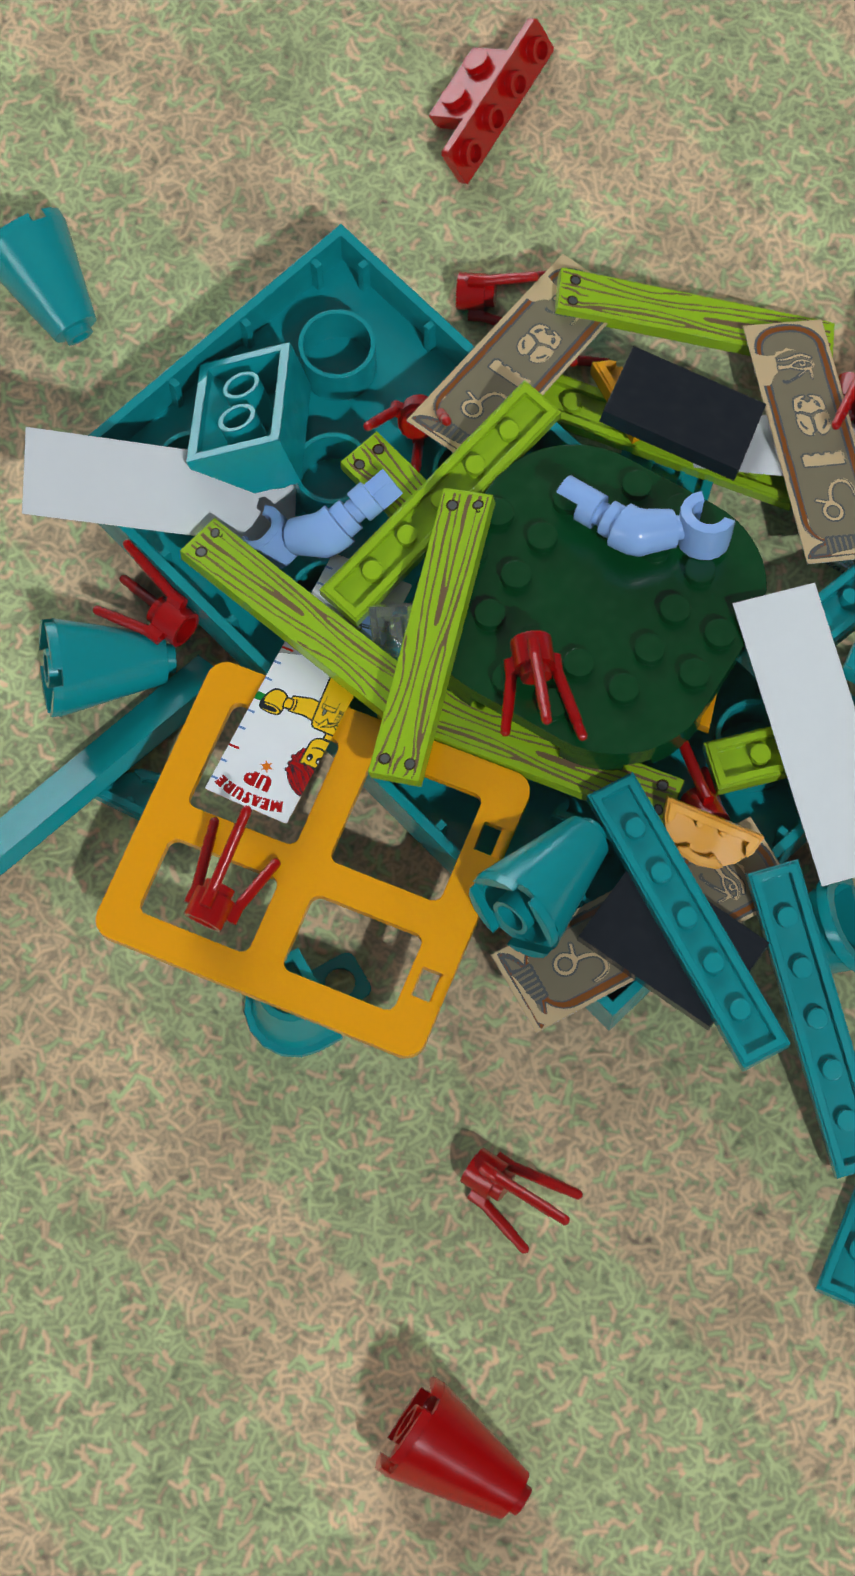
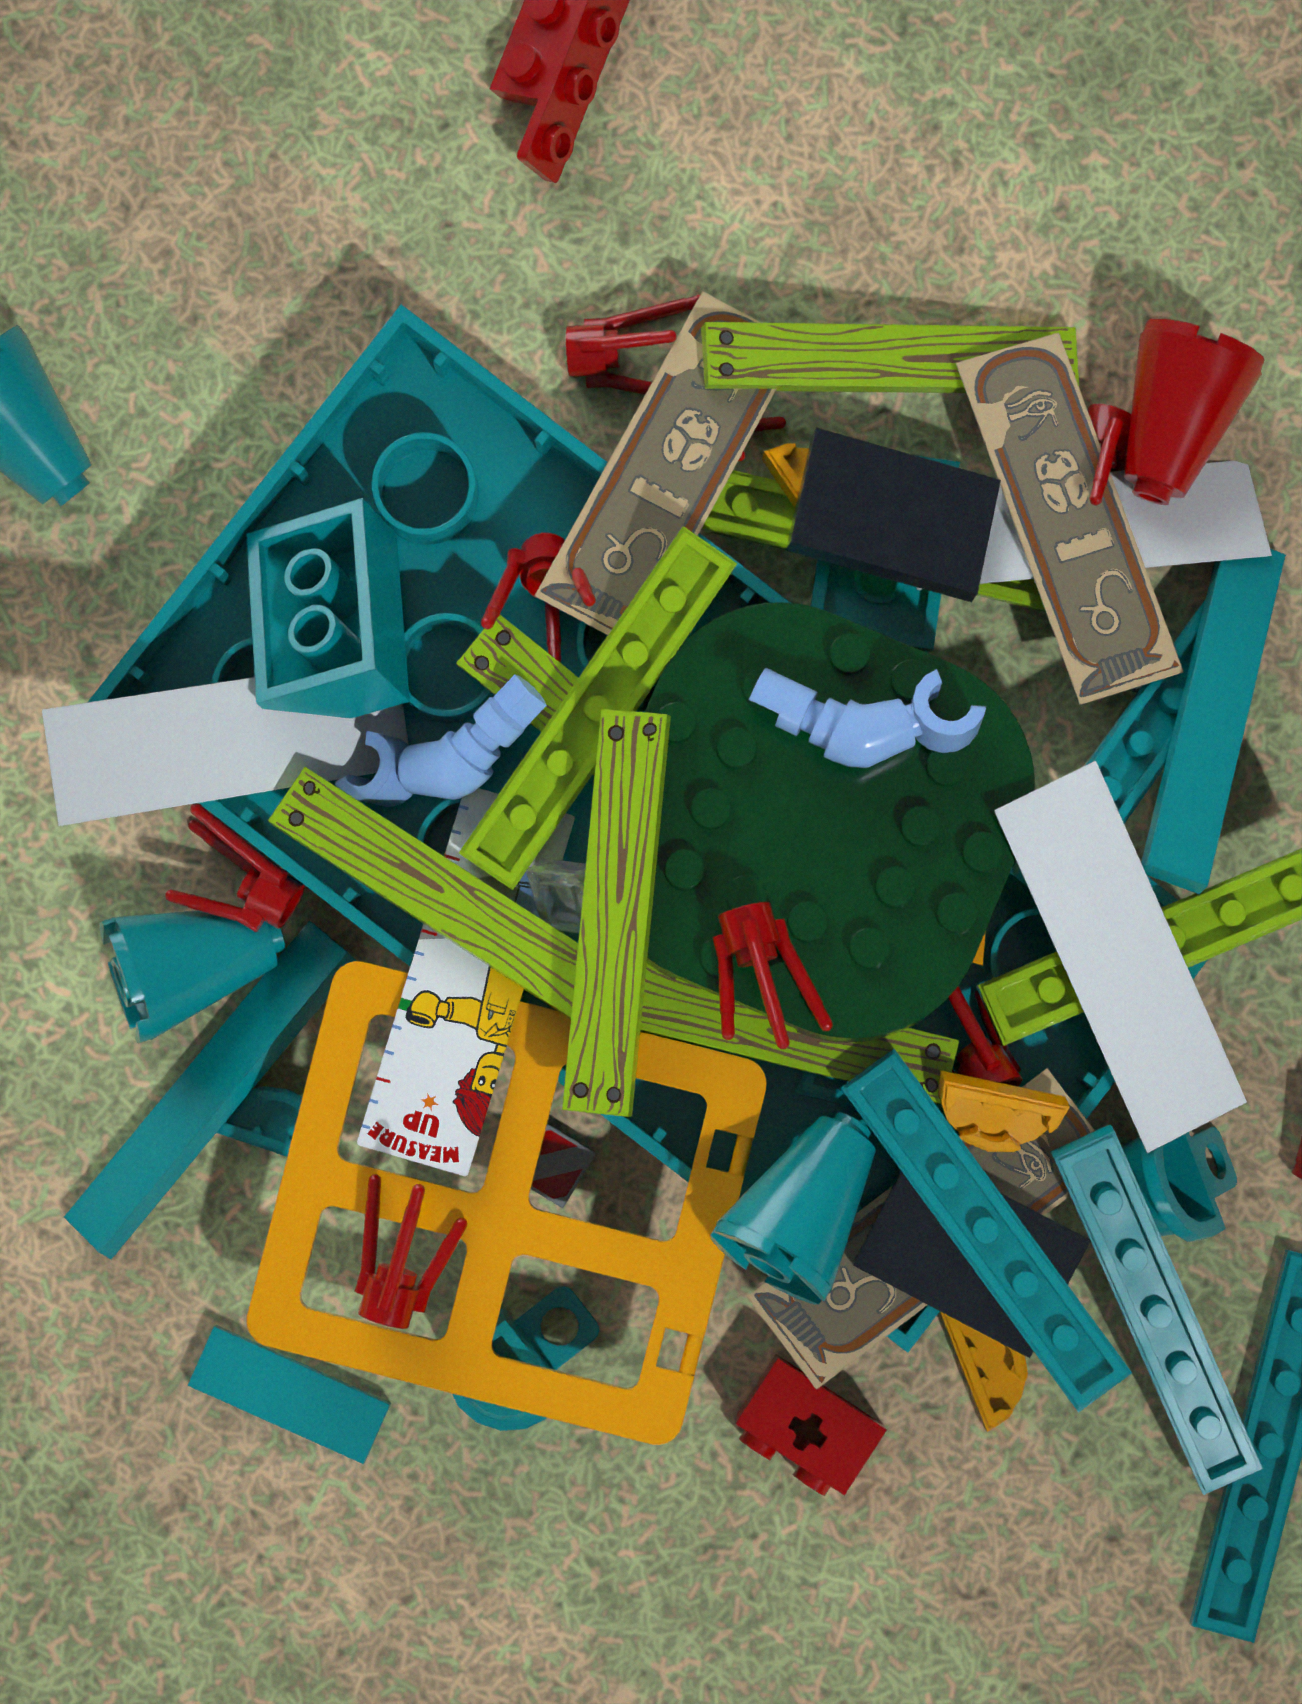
camera: 10 degrees left, 15 degrees up
(119, 1002) = (289, 1394): none -> teal tile
(359, 852) = (560, 1166): none -> tile
(494, 1175) = (782, 1550): red plant -> none
(517, 1053) = (846, 1430): none -> red brick
(677, 1056) = (991, 1371): none -> light orange tile

